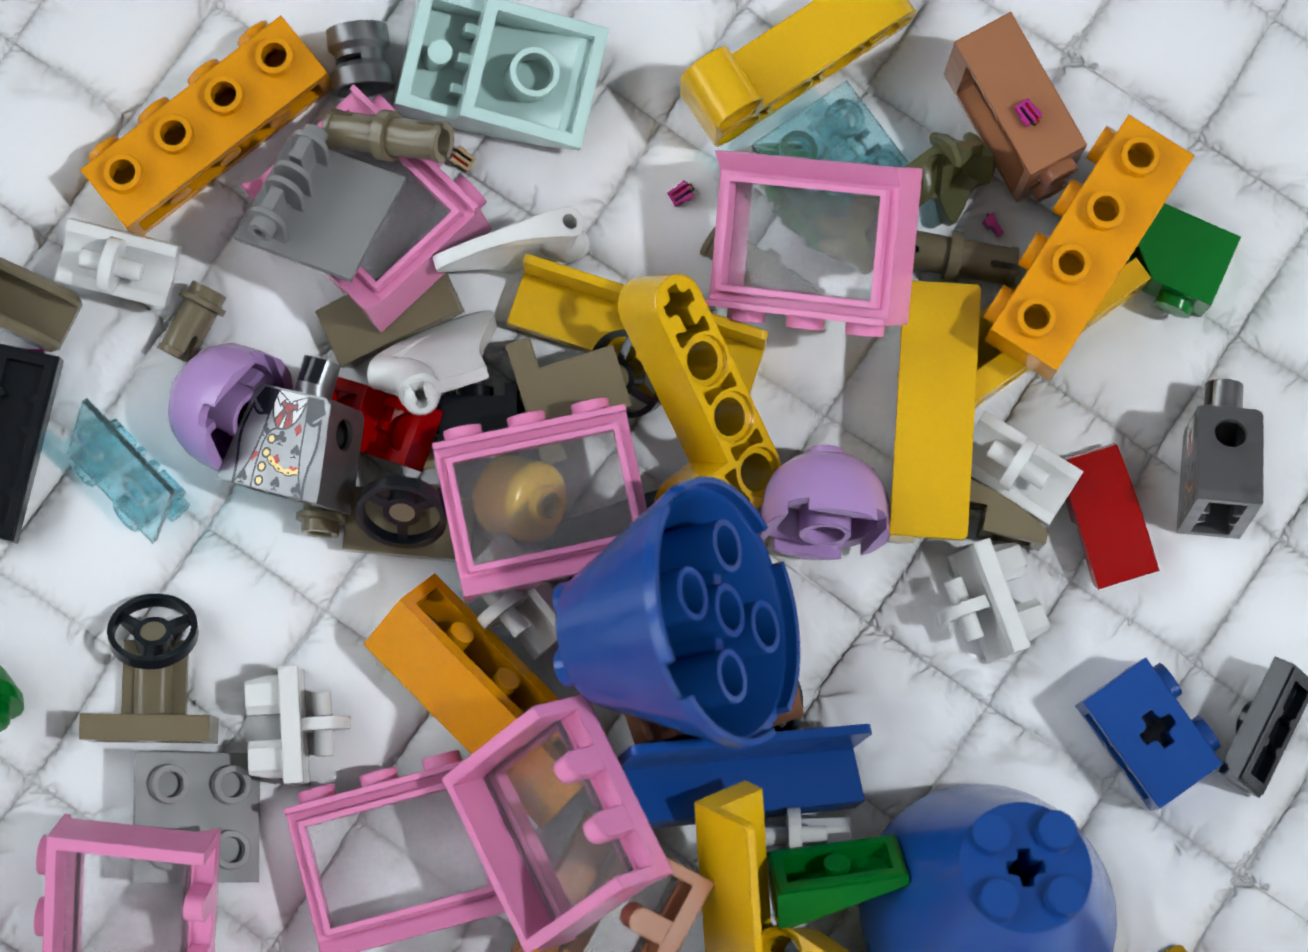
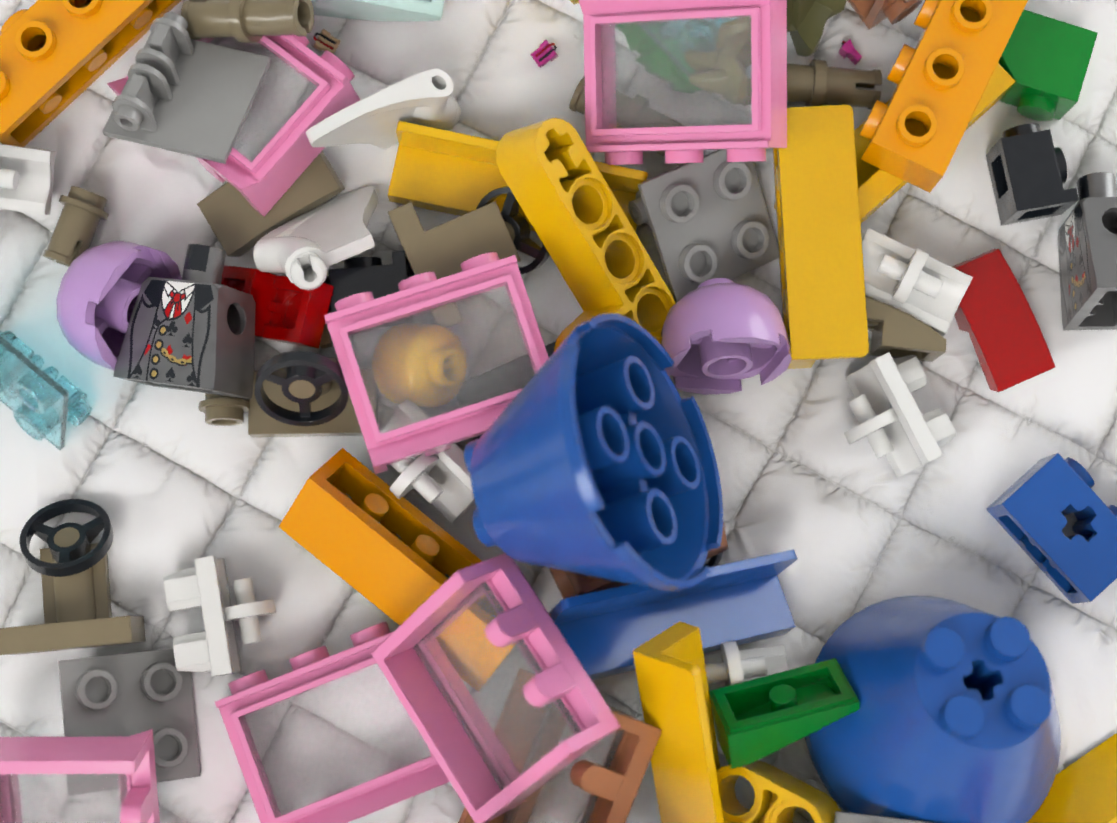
camera: 15 degrees left, 0 degrees up
(823, 387) = (706, 221): none -> light grey hinge
(1157, 372) = (1028, 175): none -> black brick

